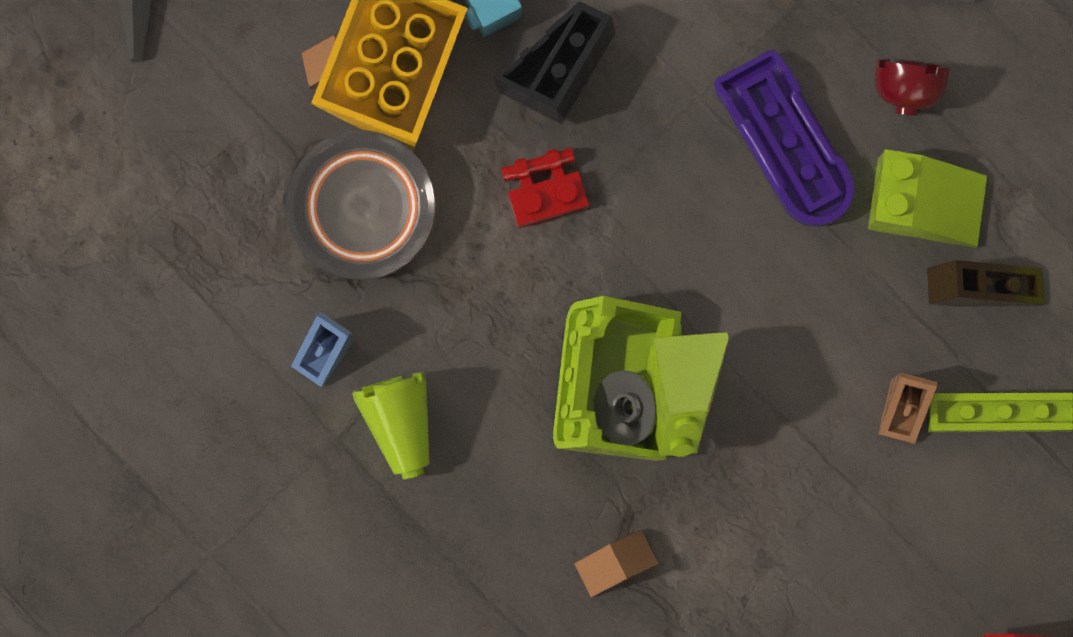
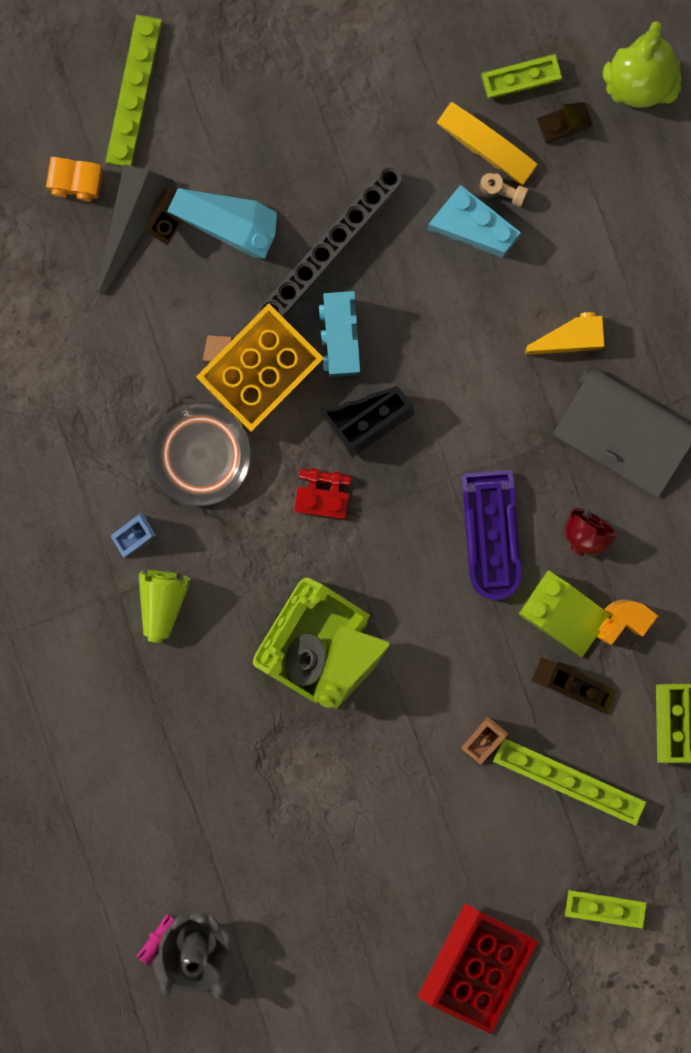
camera: 30 degrees right, 5 degrees up
(615, 563) = (257, 753): medium nougat slope -> none
(1012, 164) = (625, 613): none -> light orange brick

